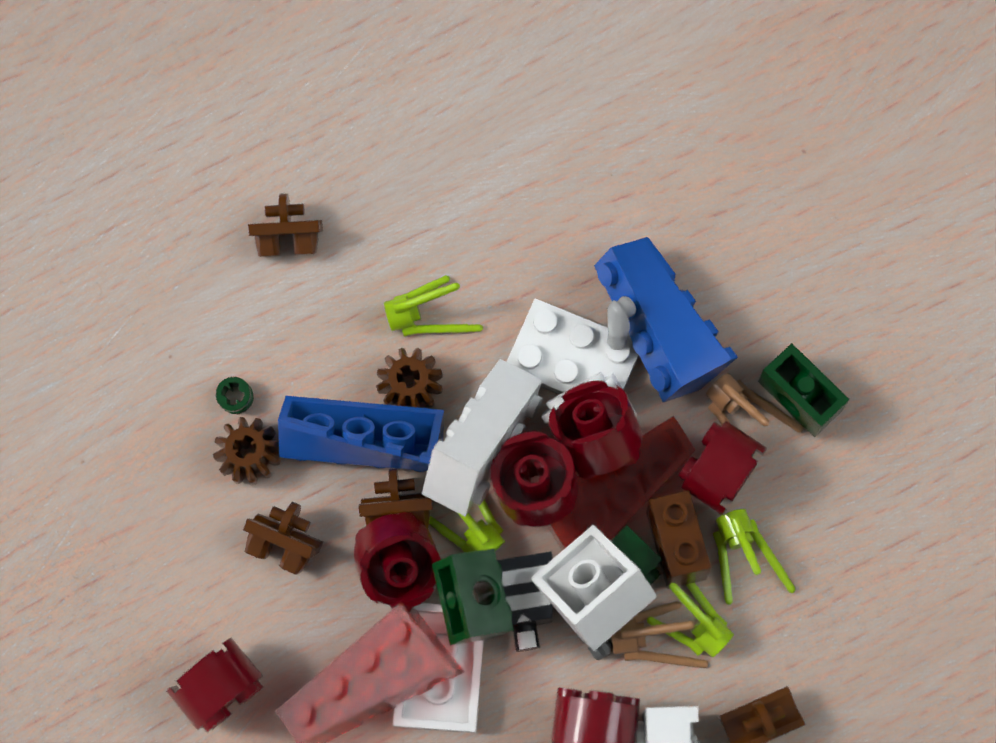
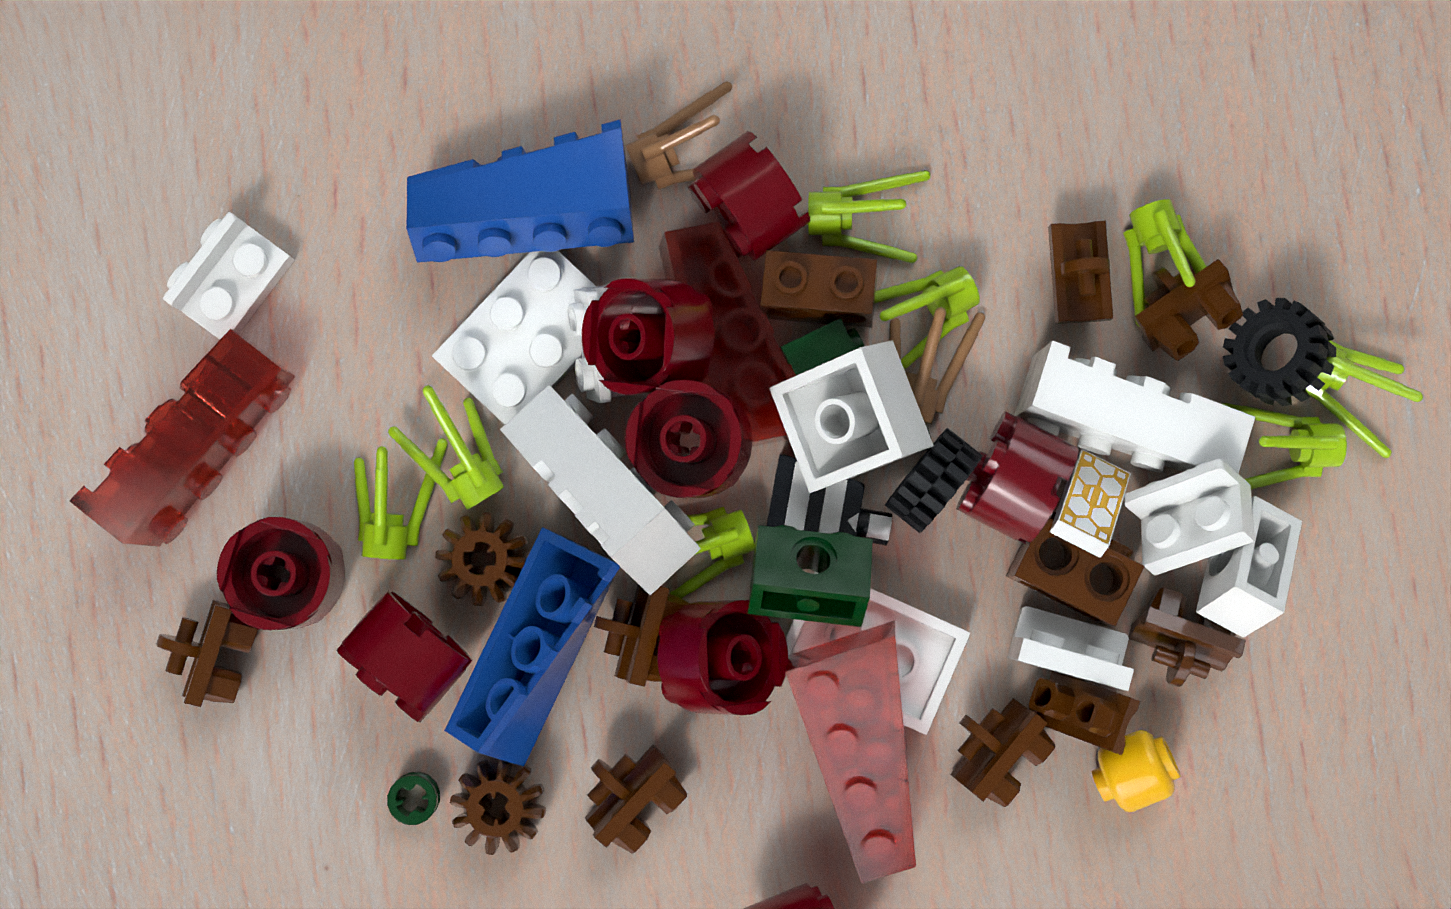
camera: 75 degrees left, 10 degrees up
(327, 351) = (404, 654): none -> dark red brick
(334, 246) = (262, 598): none -> dark red brick
(418, 165) = (187, 444): none -> clear red wedge
(462, 355) = (473, 477): none -> lime plant
(538, 150) = (227, 276): none -> white bracket
(572, 665) = (933, 480): none -> black tyre
(618, 322) = (510, 254): light grey arm -> none
(803, 390) = (686, 58): dark green brick -> none

